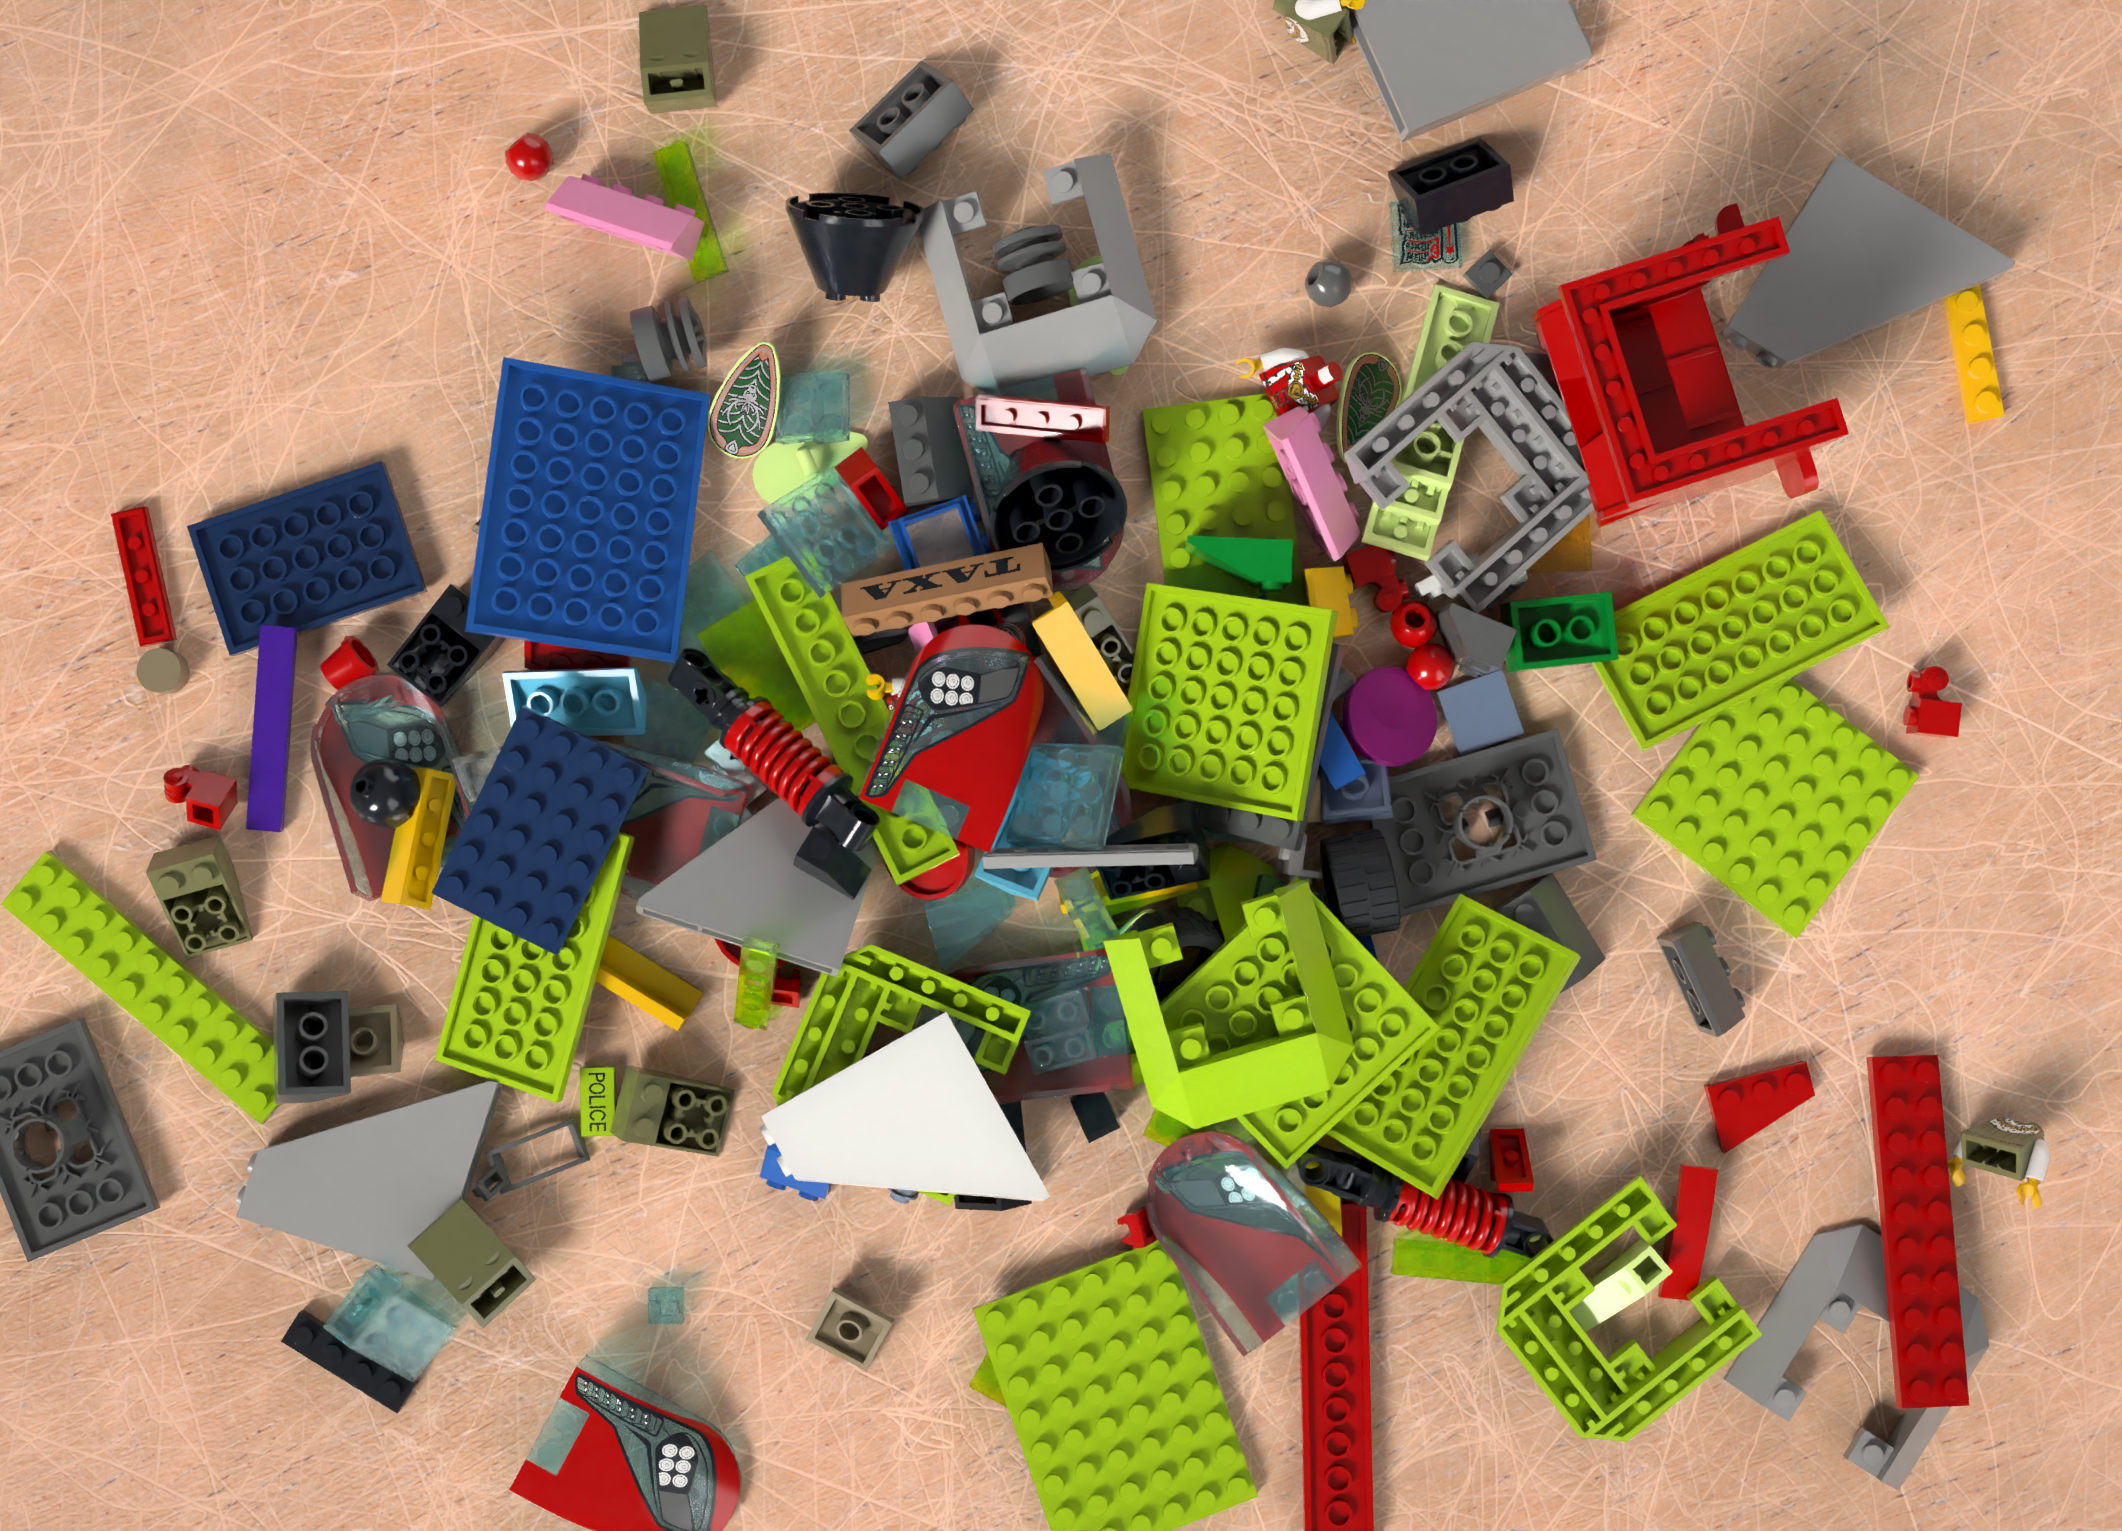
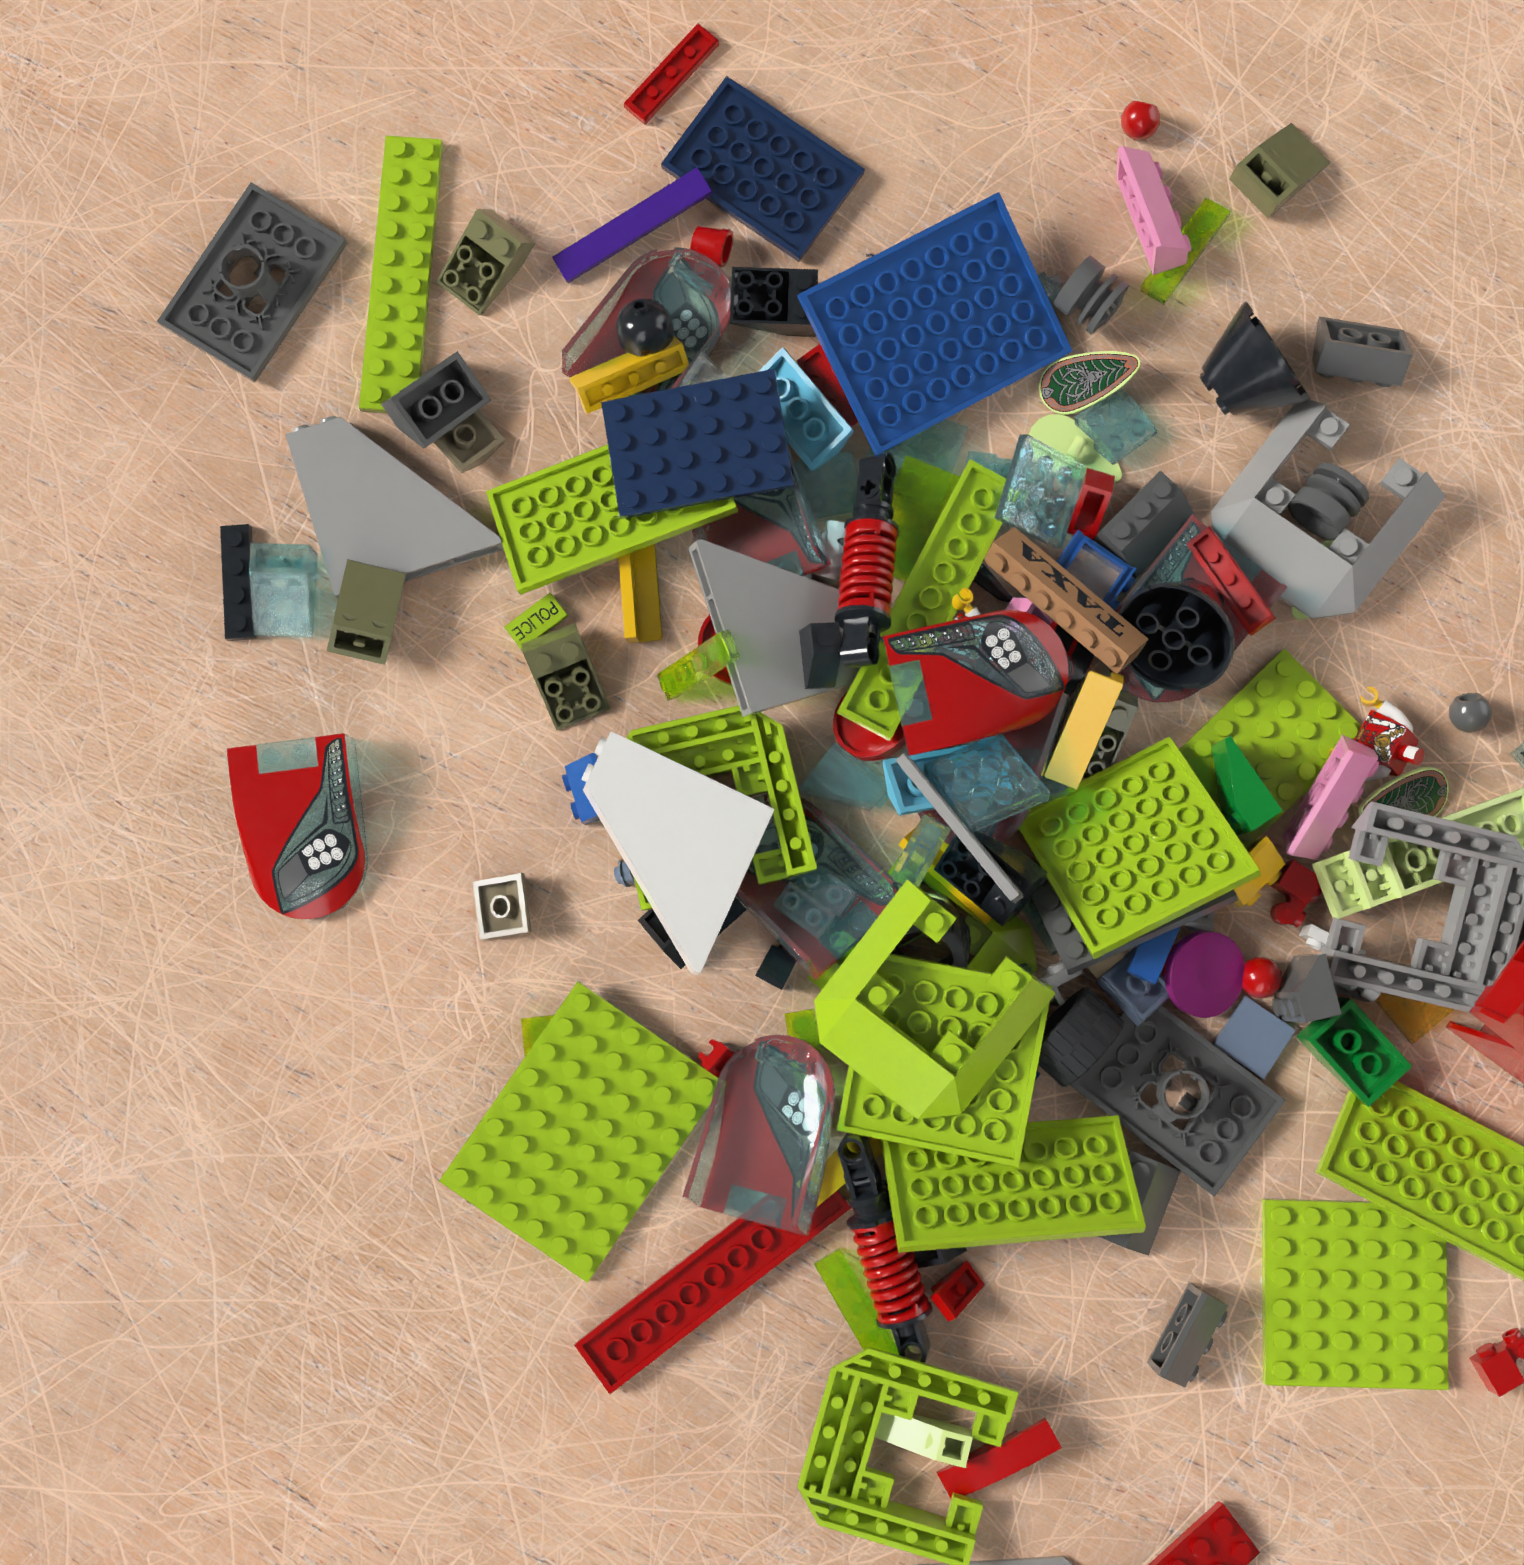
camera: 60 degrees right, 5 degrees down
(163, 671) = (617, 129): dark tan piece -> none
(207, 794) = (556, 214): red brick -> none
(499, 1173) = (440, 589): dark grey sword -> none
(666, 1305) = (428, 768): clear light blue tile -> none
(787, 991) = (705, 694): red tile -> none
(1413, 624) = (1281, 943): red piece -> none
(1756, 1100) = (1128, 1441): red wing -> none

